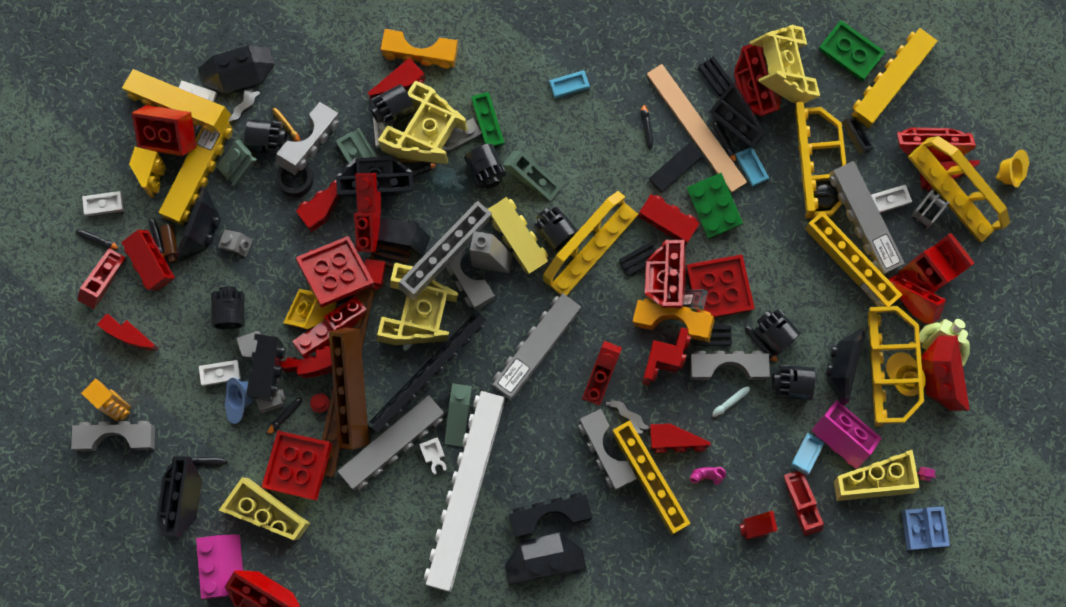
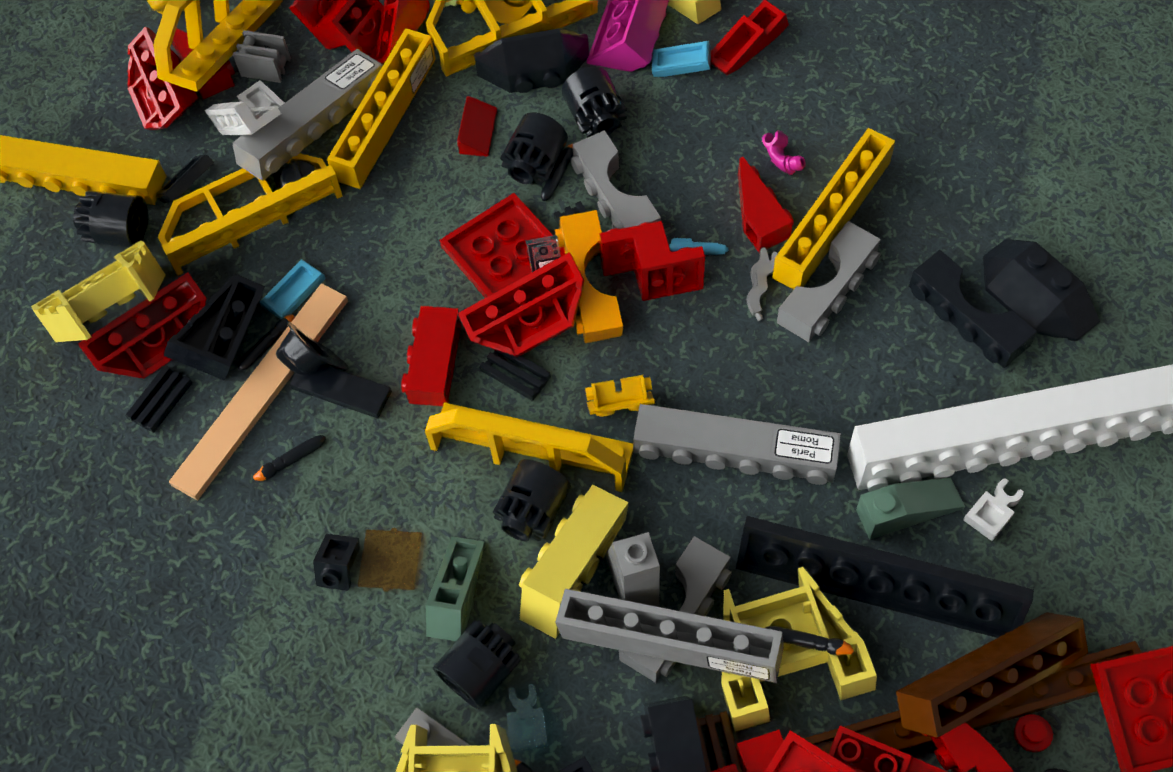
camera: 110 degrees left, 15 degrees down
(391, 443) = (1057, 590): light grey brick -> none
(410, 313) = (833, 646): none -> black piece
(487, 119) = (388, 709): green plate -> none
(565, 153) = (390, 559): none -> clear orange piece
(569, 84) = (262, 609): medium azure tile -> none
(576, 126) = (335, 561): none -> black bracket
(591, 307) = (608, 400): none -> yellow hinge
(602, 372) = (709, 337): red slope -> none
(672, 389) = (709, 248): none -> medium azure piece
(700, 157) = (304, 354): none -> black piece
(715, 205) = (378, 307): green plate -> none
(731, 401) = (680, 178): light aqua piece -> none
(758, 525) = (815, 54): red slope -> none
(816, 311) = (476, 127): none -> red slope
(843, 85) = (111, 218): none -> black gear
(851, 50) = (43, 241): green plate -> none
(871, 170) = (238, 119): none -> white fence

